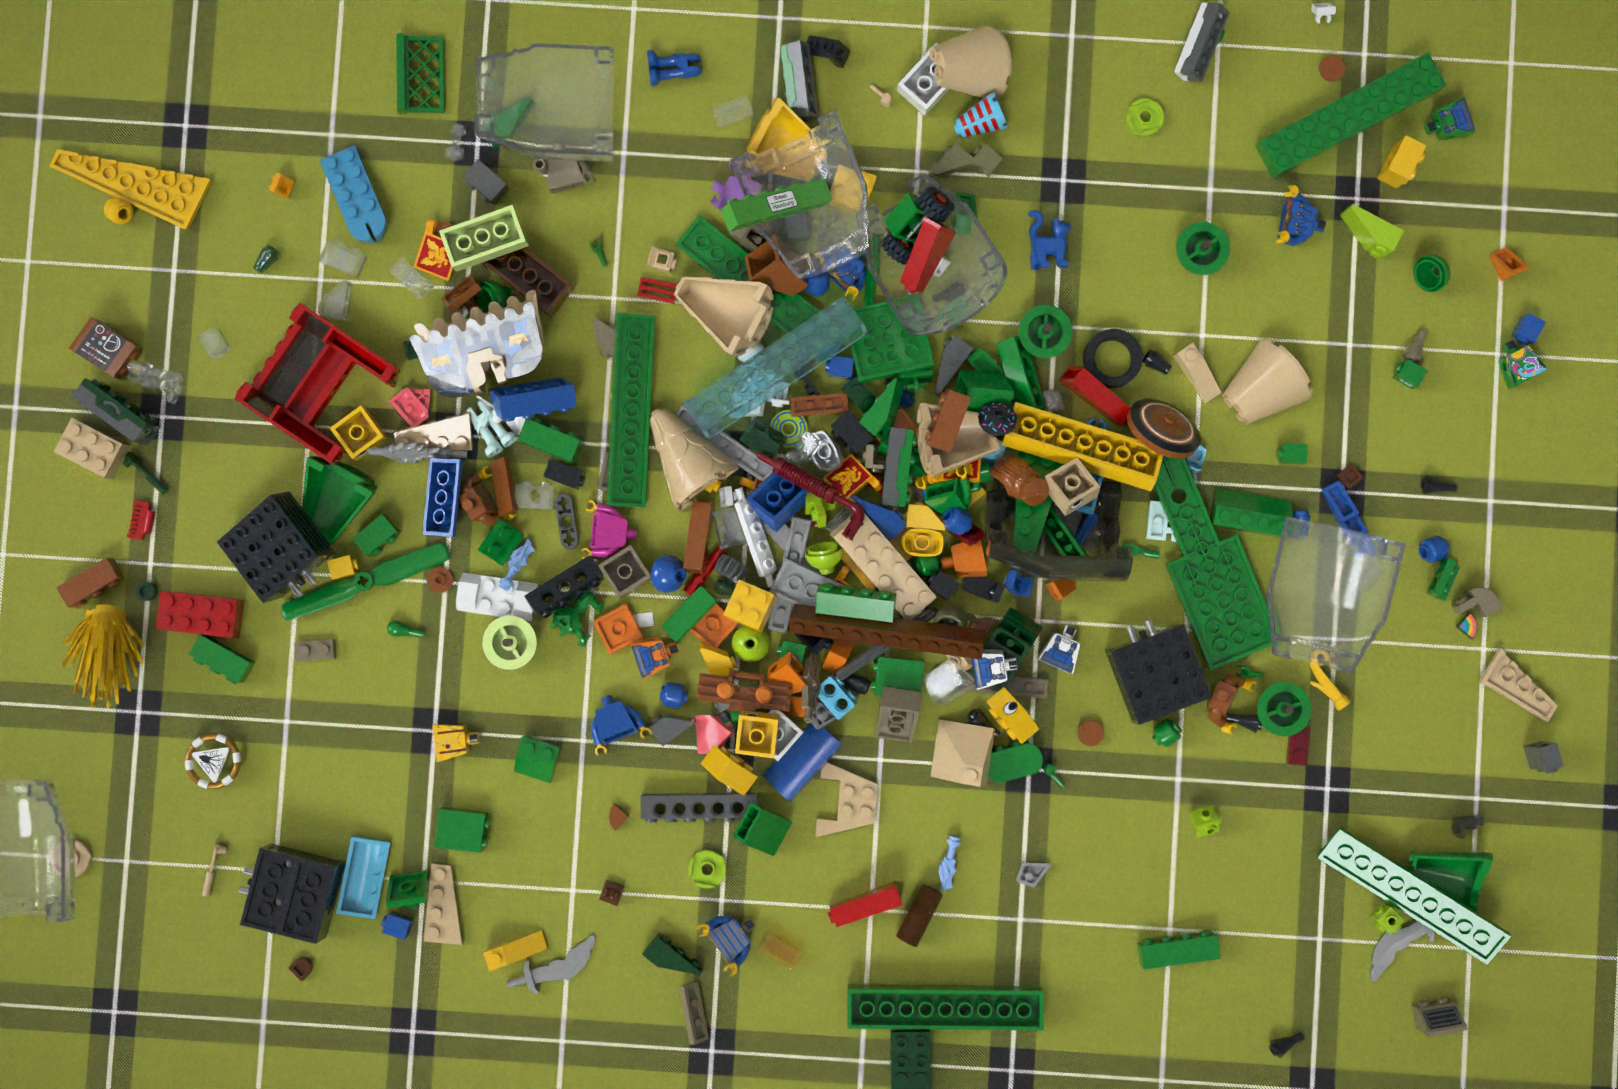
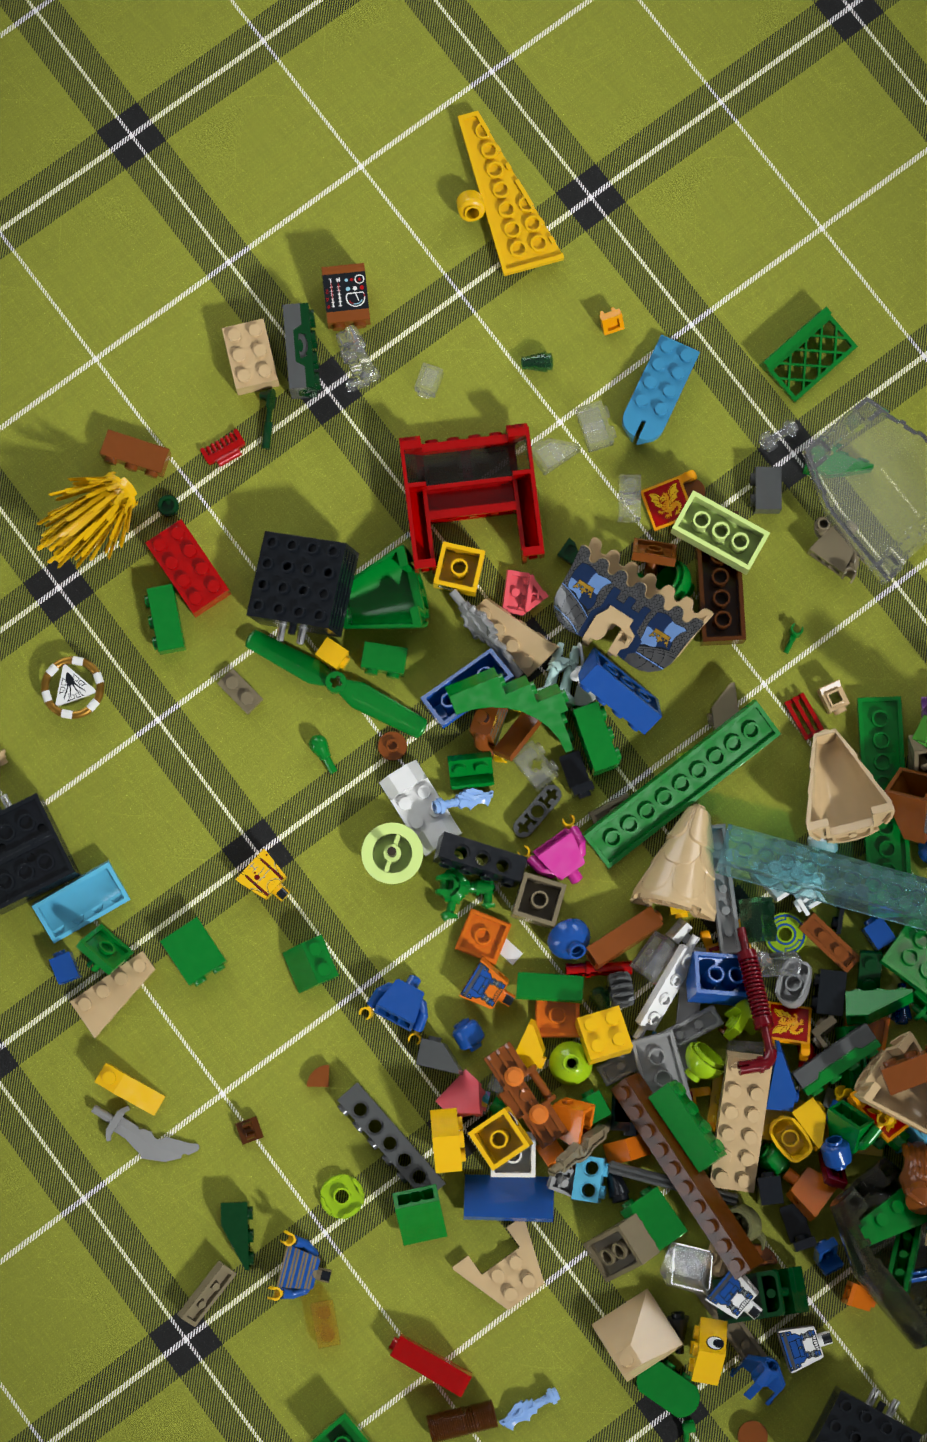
camera: 45 degrees right, 5 degrees down
(455, 483) = (491, 690): none -> green arch
(1057, 691) = (764, 1372): none -> blue piece

